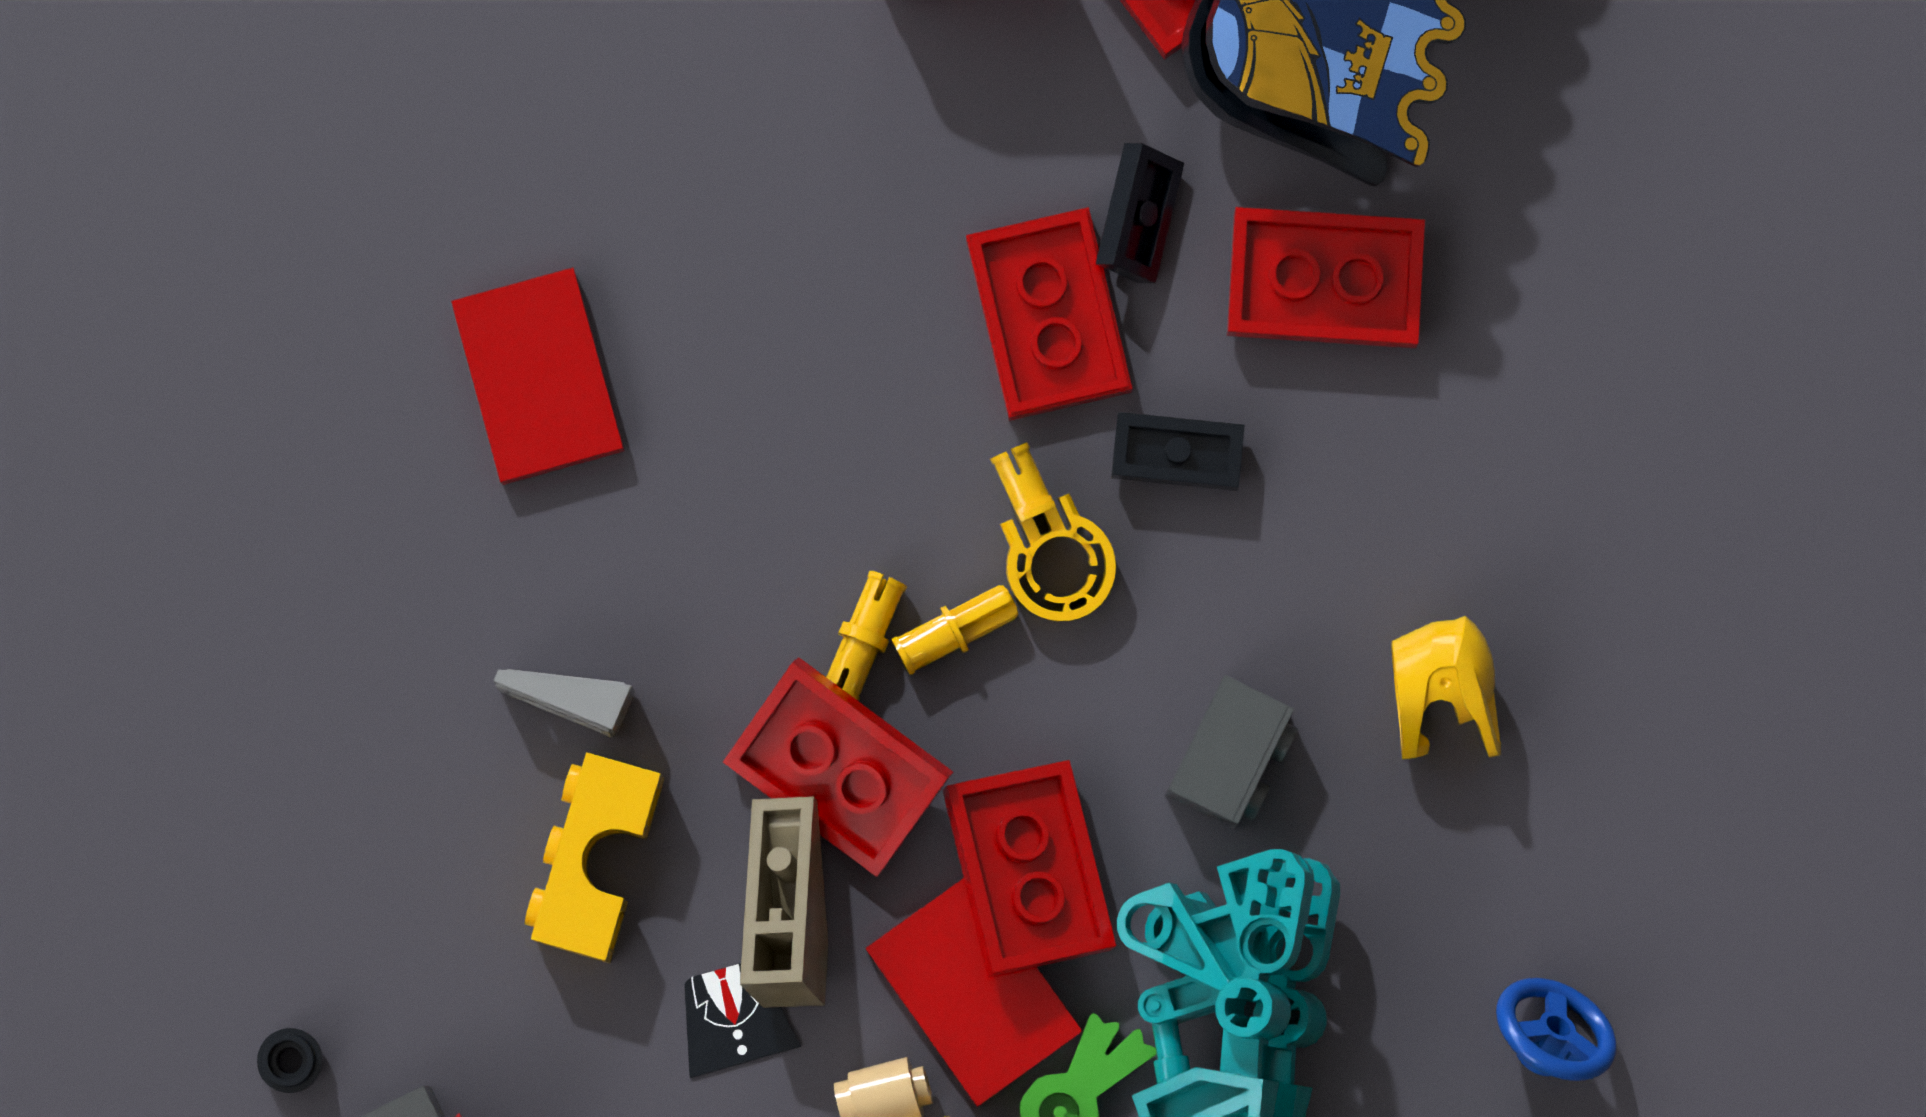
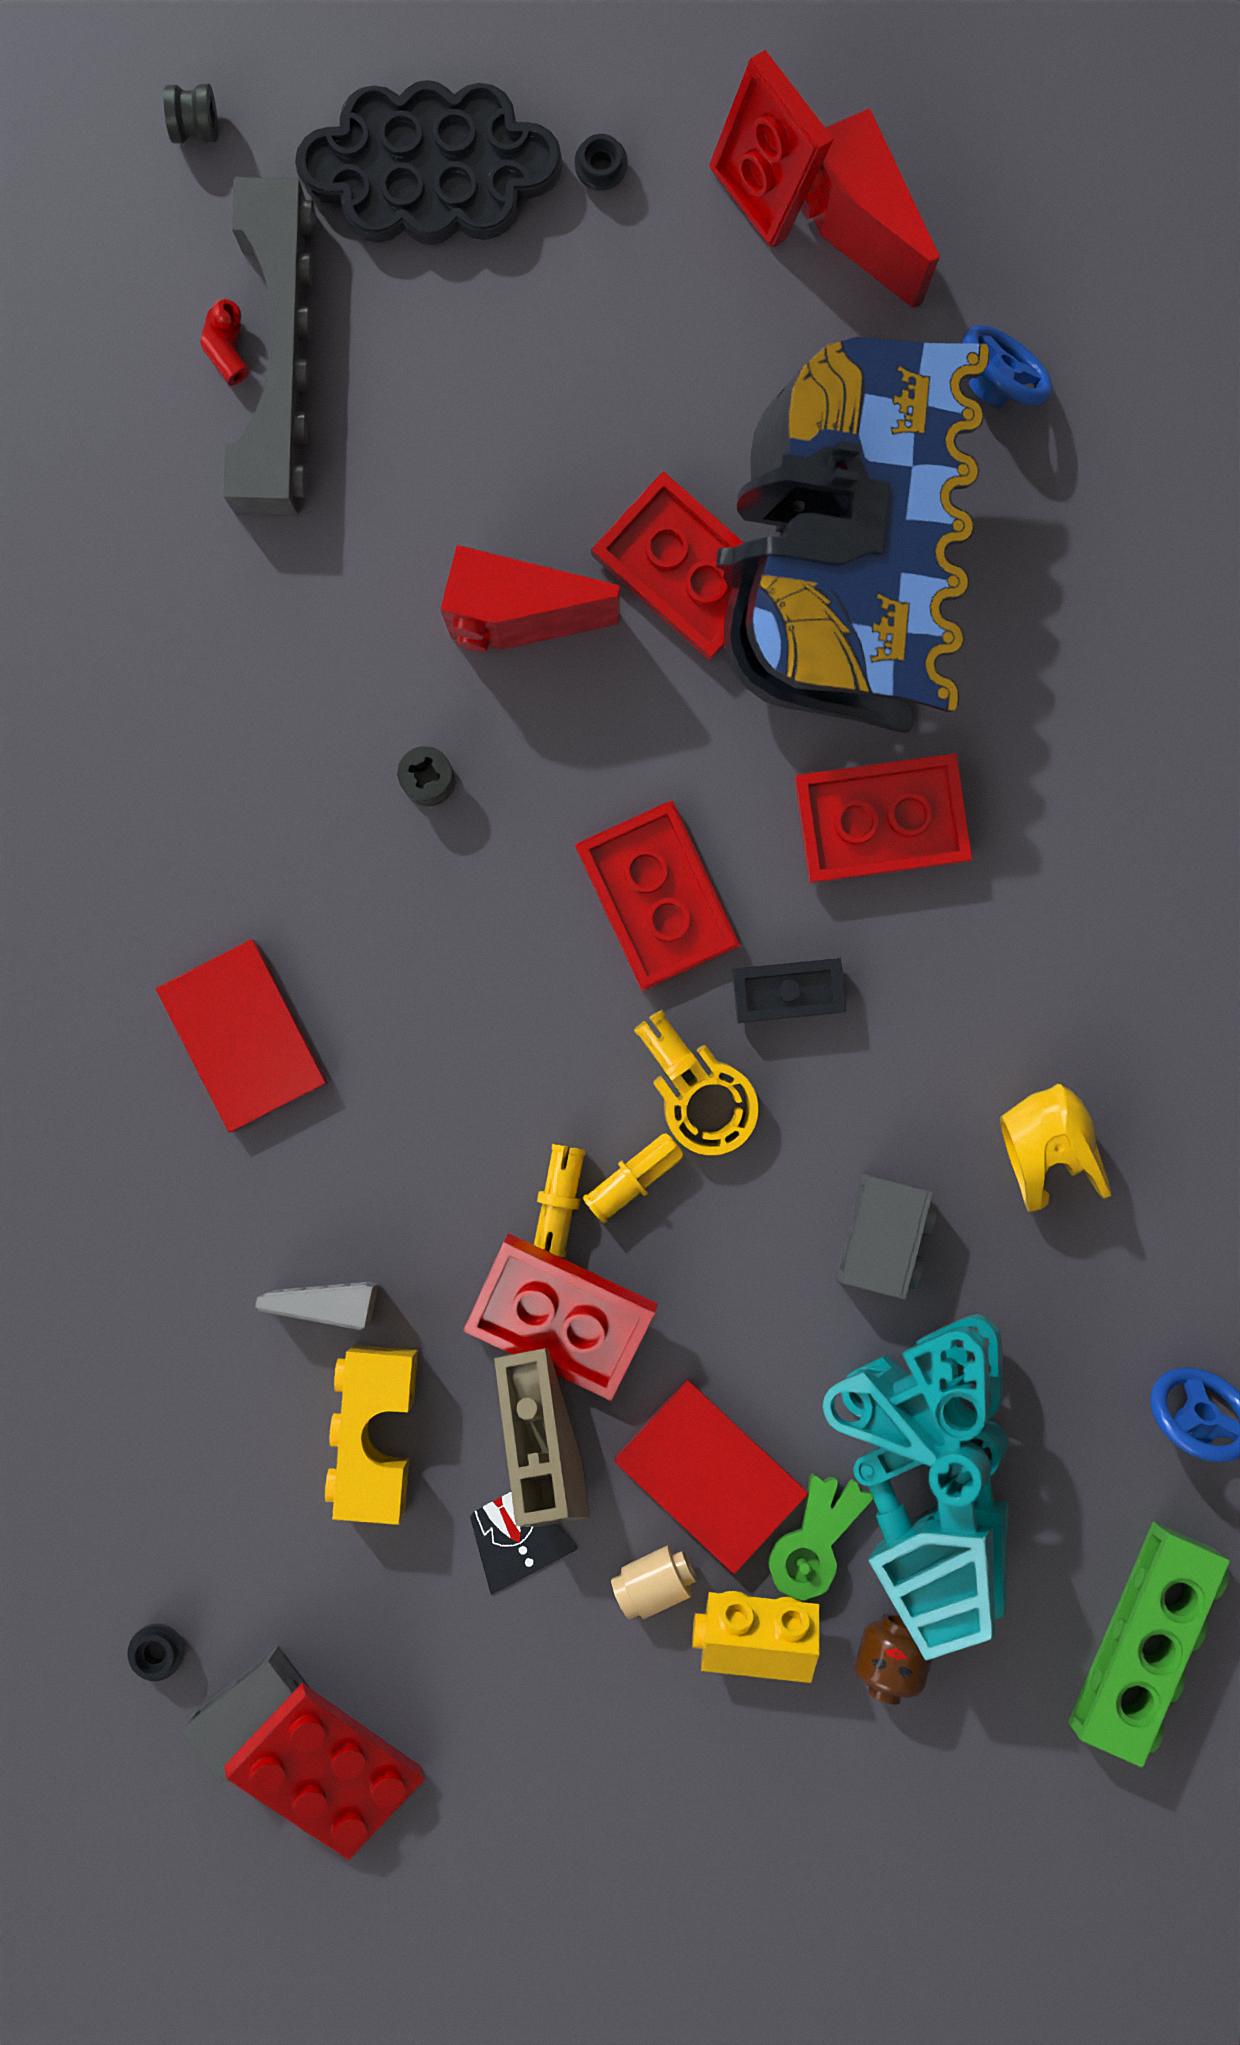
camera: 10 degrees left, 5 degrees up
(808, 135) = (433, 789): none -> pearl dark grey wheel
(1029, 868) = (737, 1369): red plate -> none
(1140, 213) = (716, 796): black plate -> none

